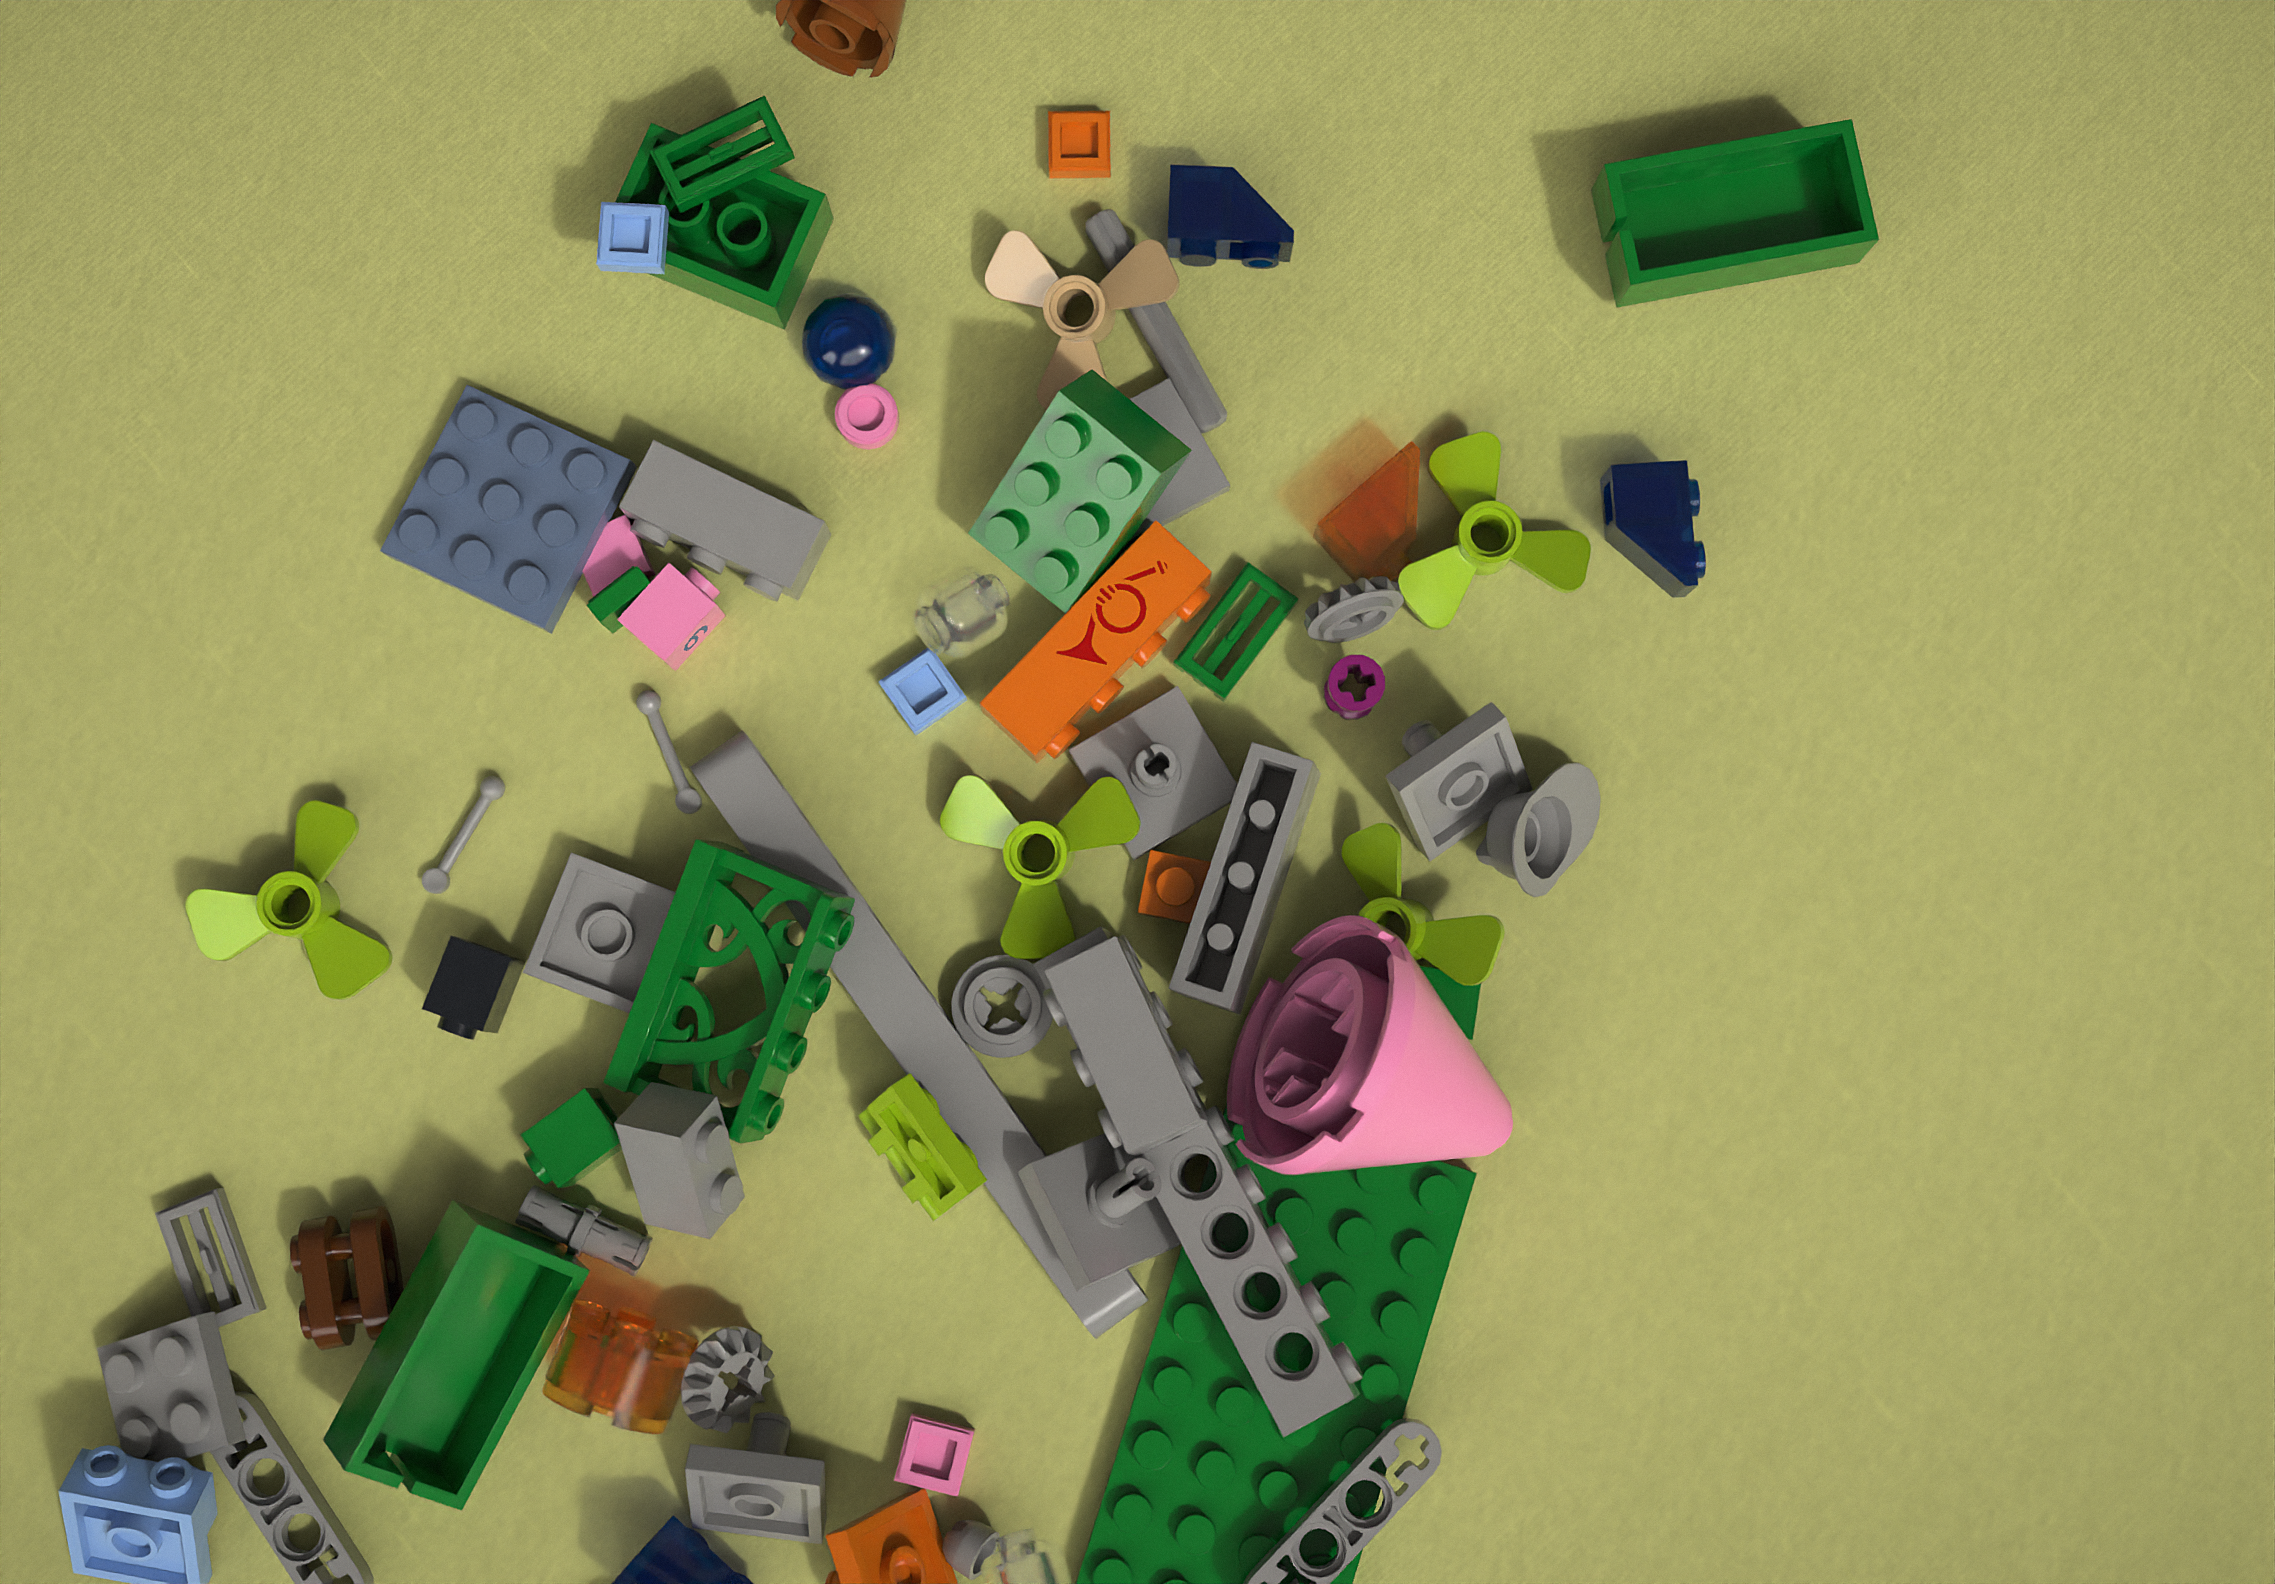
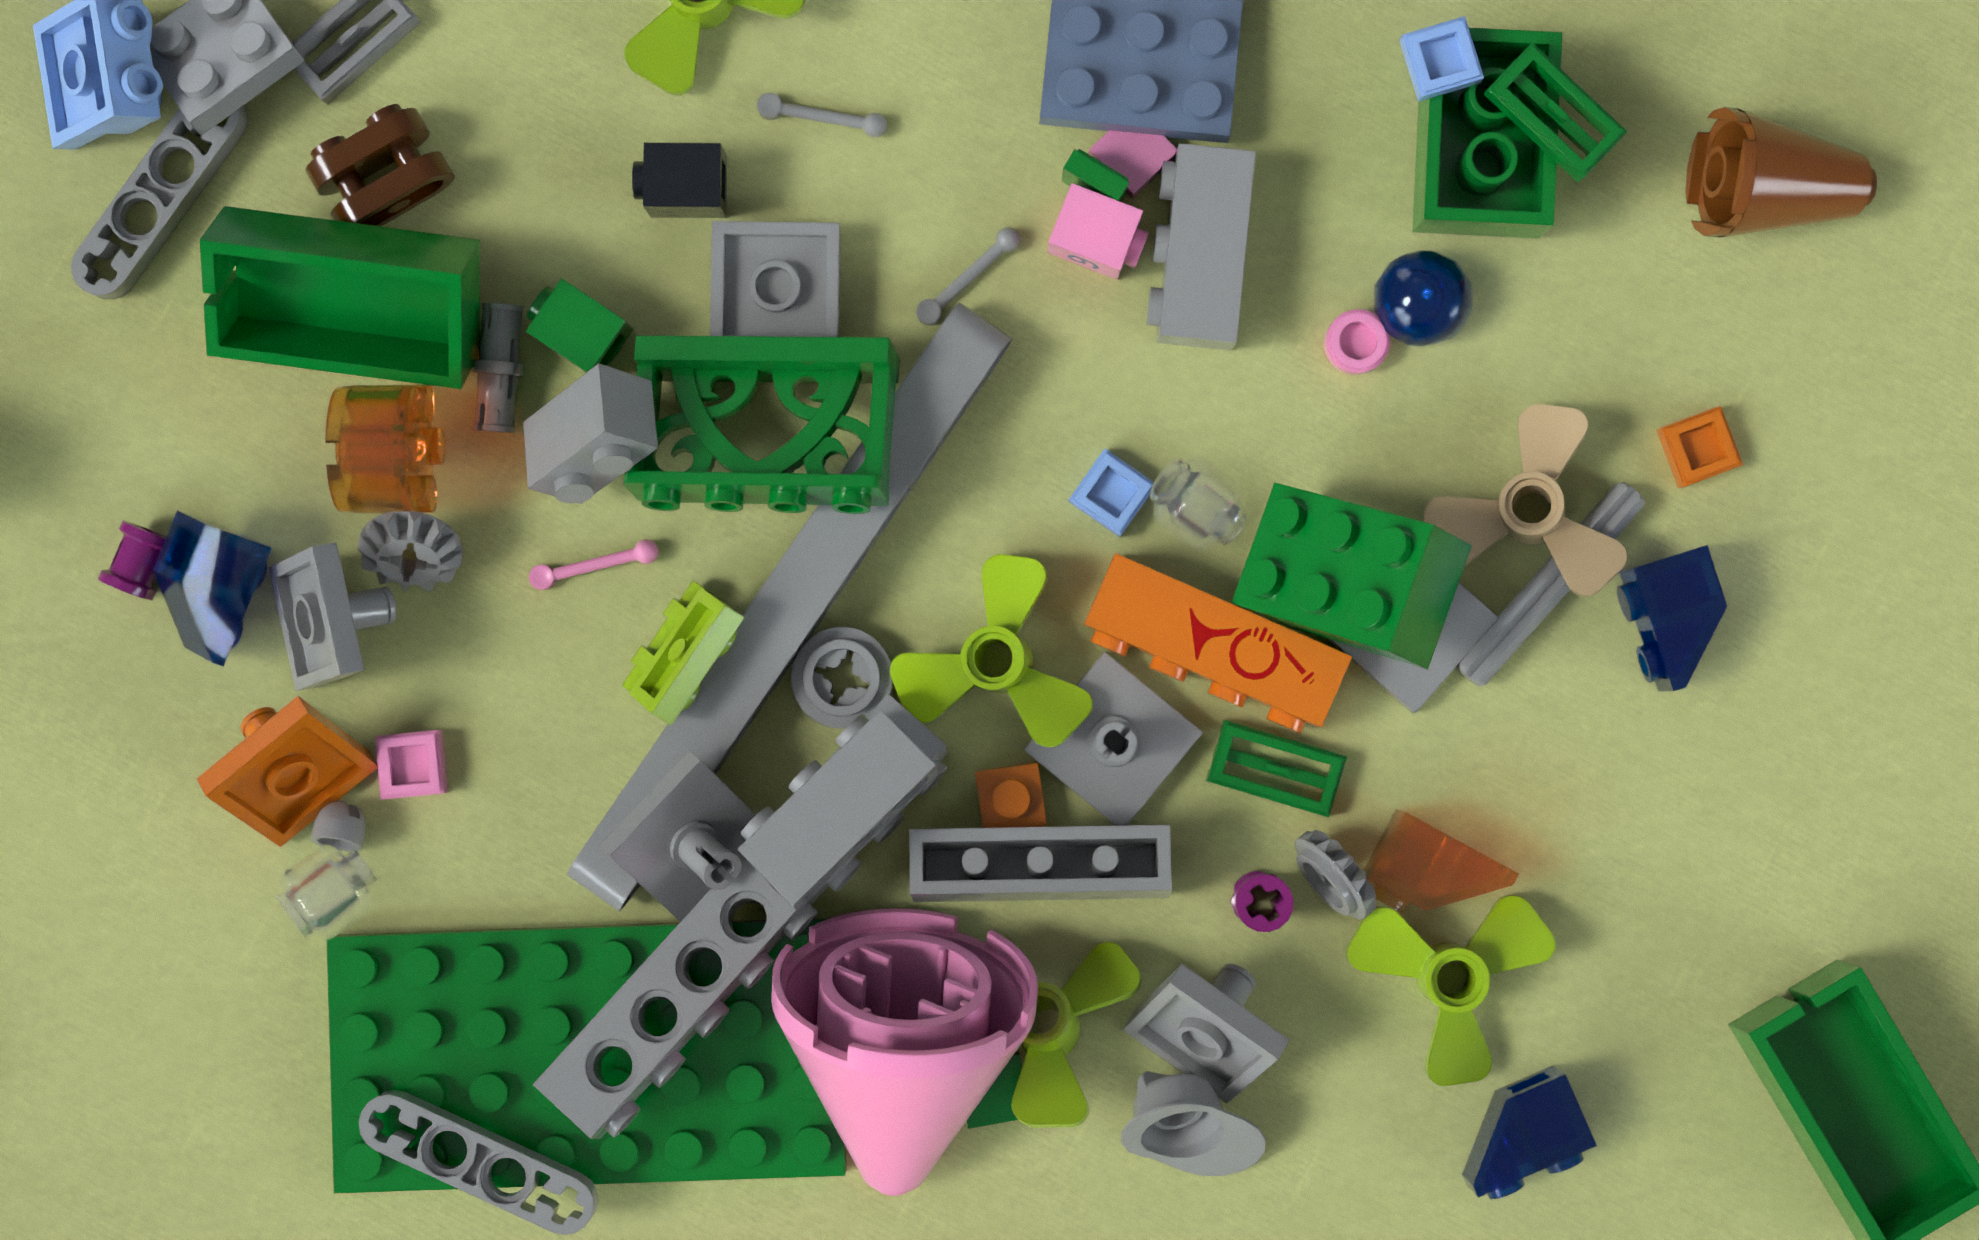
camera: 80 degrees right, 5 degrees up
(802, 1259) = (544, 577): none -> bright pink hinge

